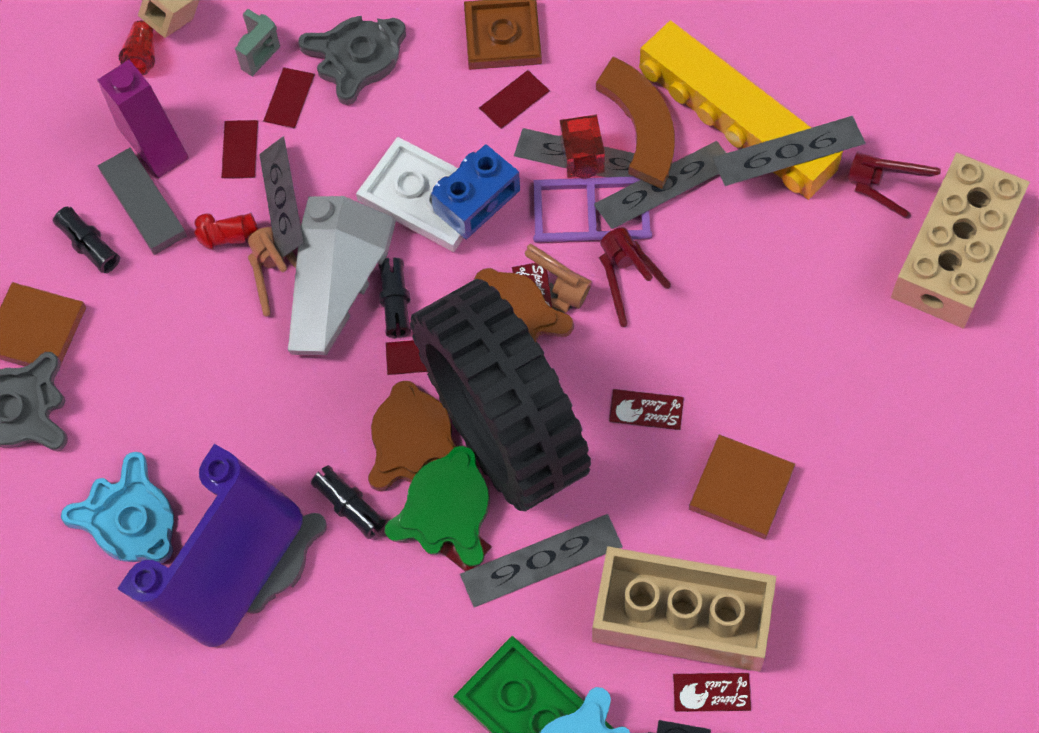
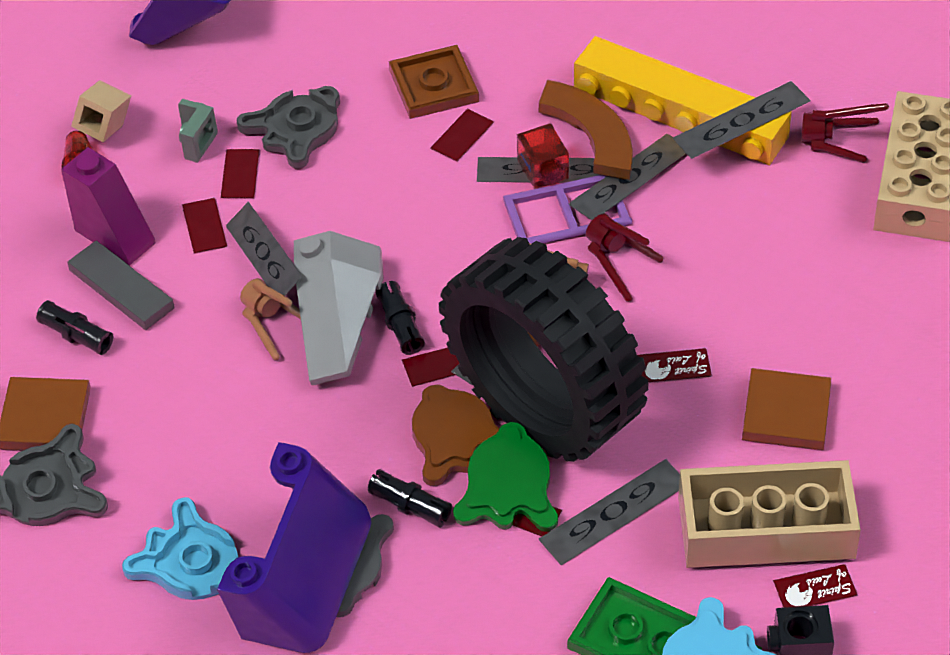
camera: 15 degrees left, 15 degrees down
(229, 230) = (213, 293): red arm -> none
(403, 189) = (405, 223): white plate -> none
(475, 191) = (454, 206): blue brick -> none

